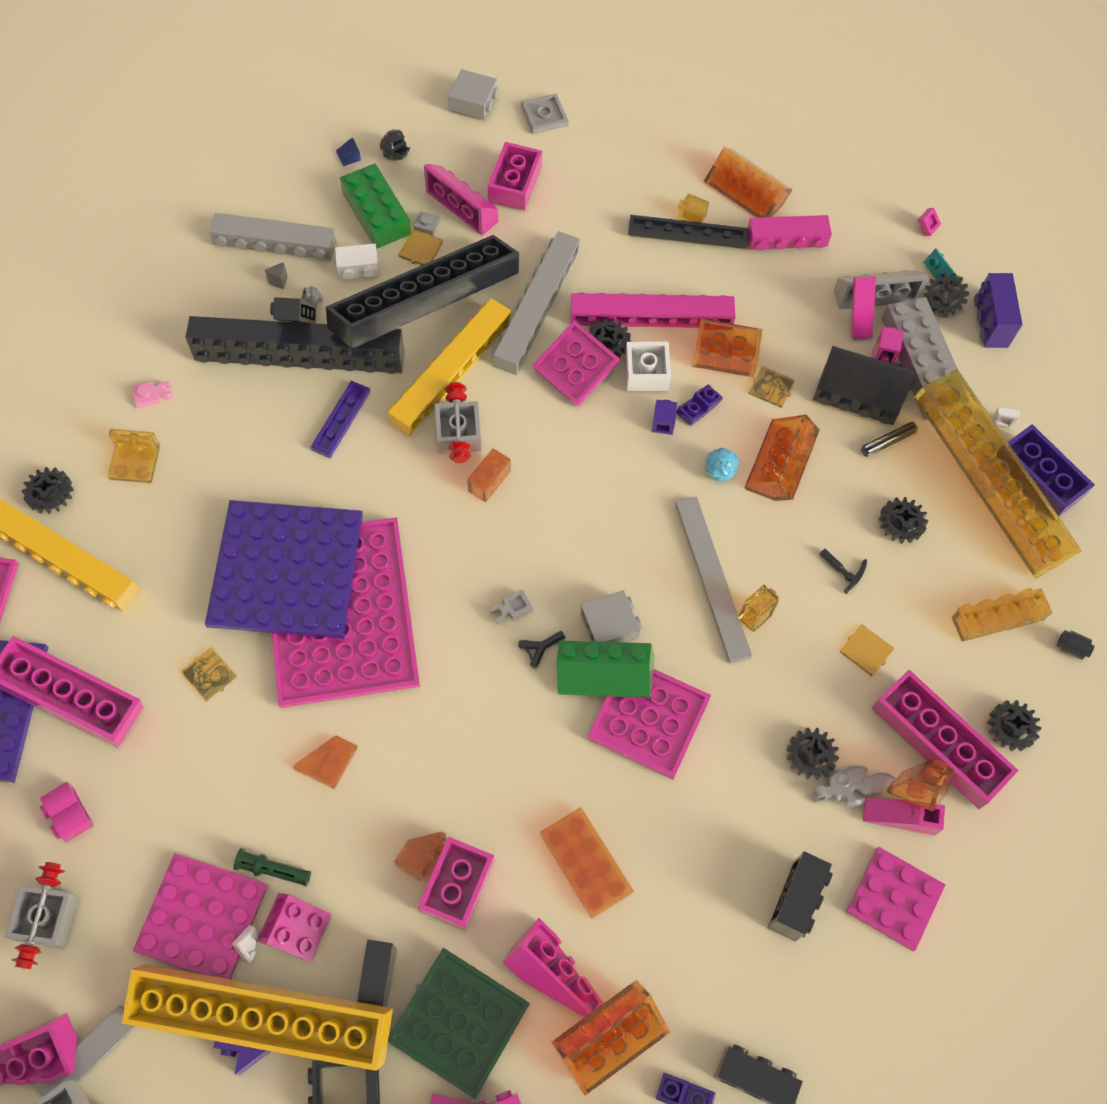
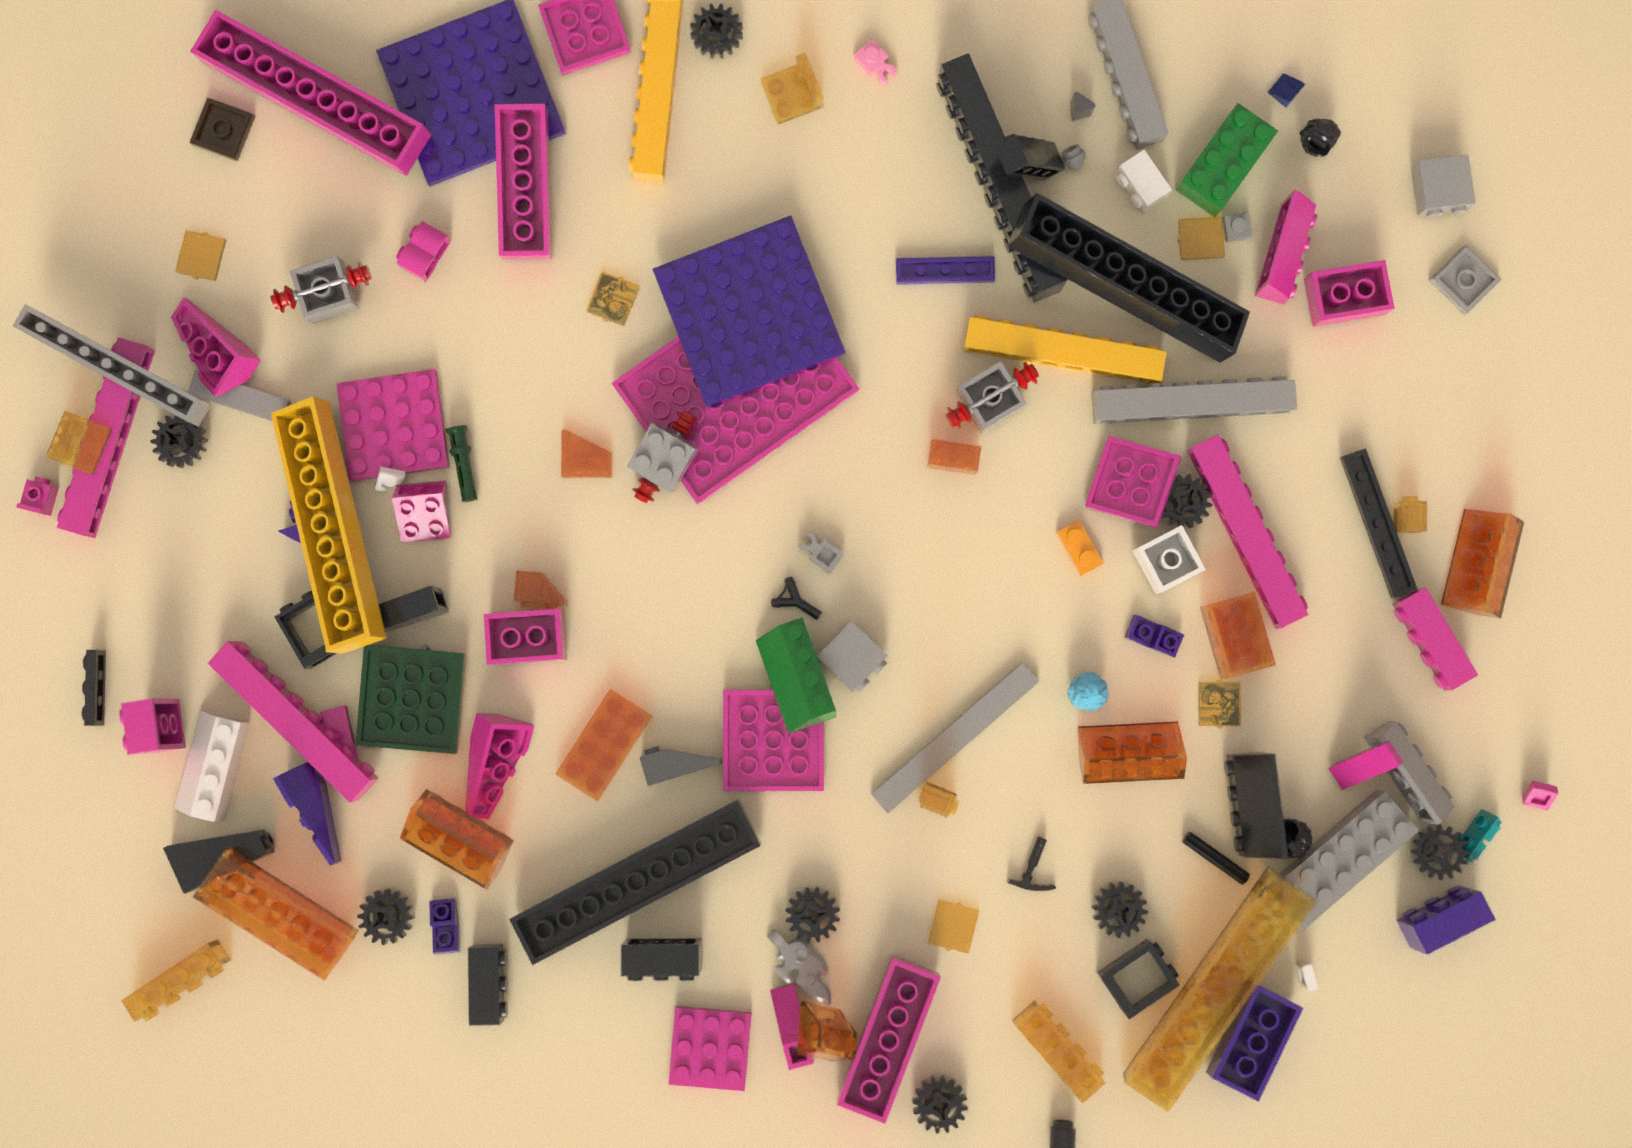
camera: 70 degrees right, 20 degrees up
(366, 687) = (663, 456): none -> light grey brick
(606, 424) = (1080, 548): none -> light orange plate
(630, 812) = (670, 764): none -> dark grey slope
(664, 417) = (1118, 605): dark purple brick -> none
(721, 893) = (635, 881): none -> black brick
(888, 345) = (1324, 812): dark pink brick -> none
(963, 551) = (1106, 975): none -> black window

